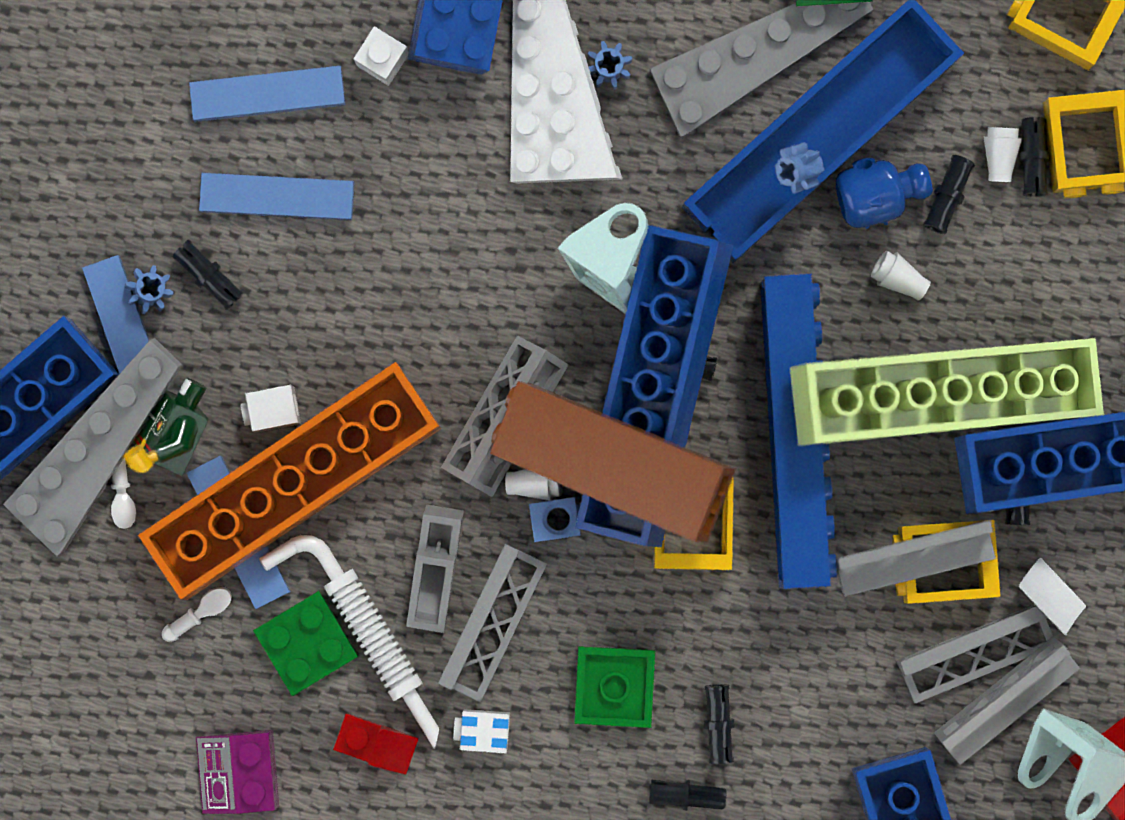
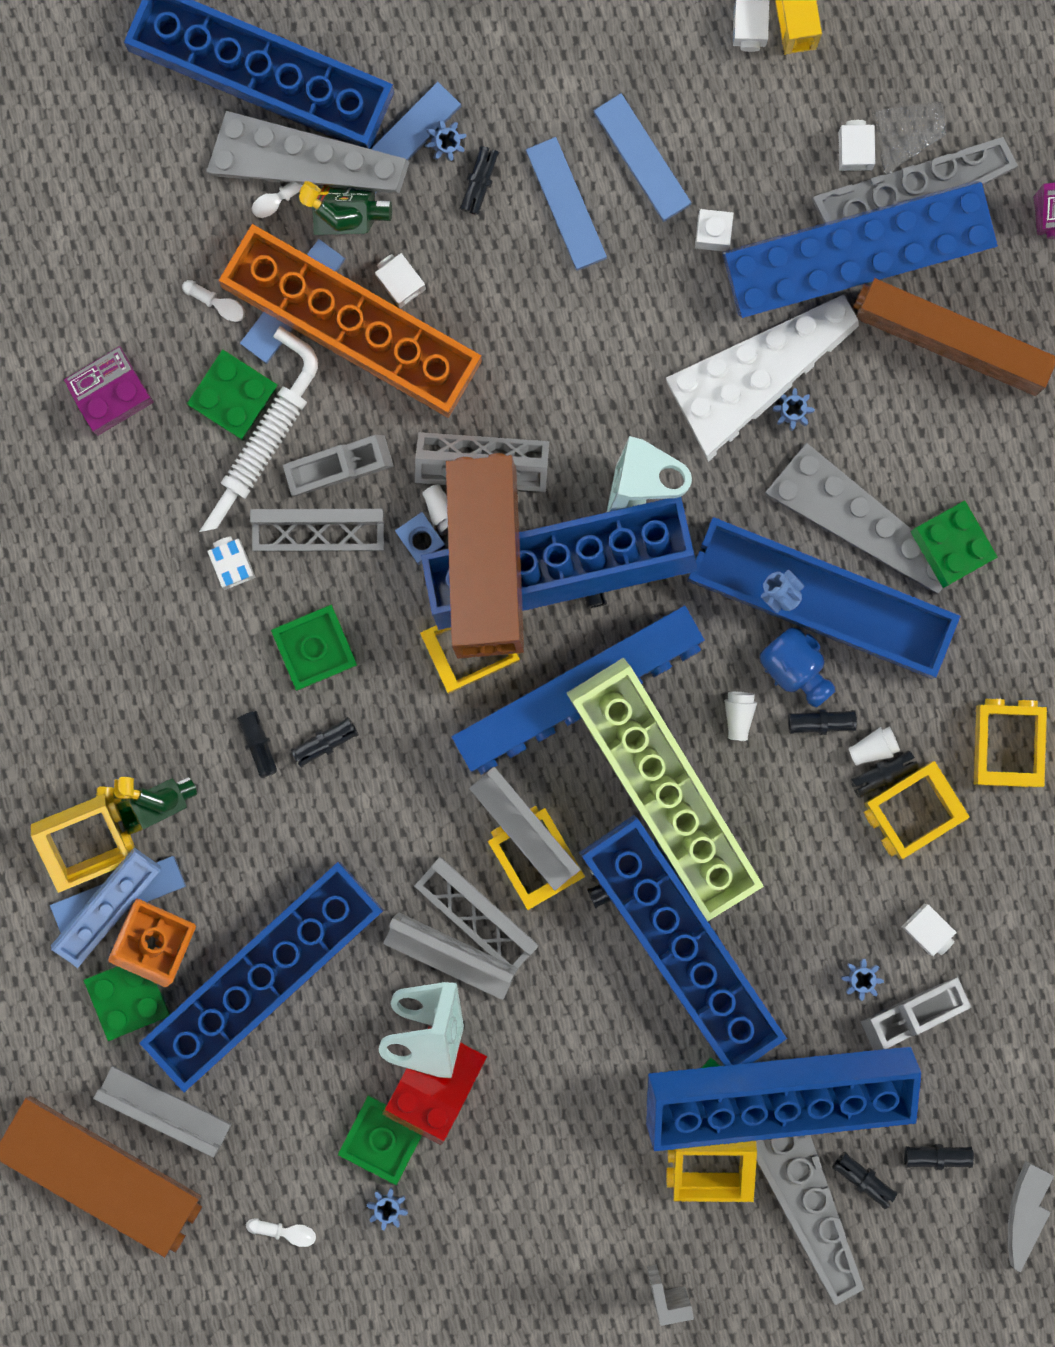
camera: 55 degrees right, 0 degrees up
(376, 744) = (181, 486): red slope -> none
(1052, 595) = (548, 951): white sticker -> none

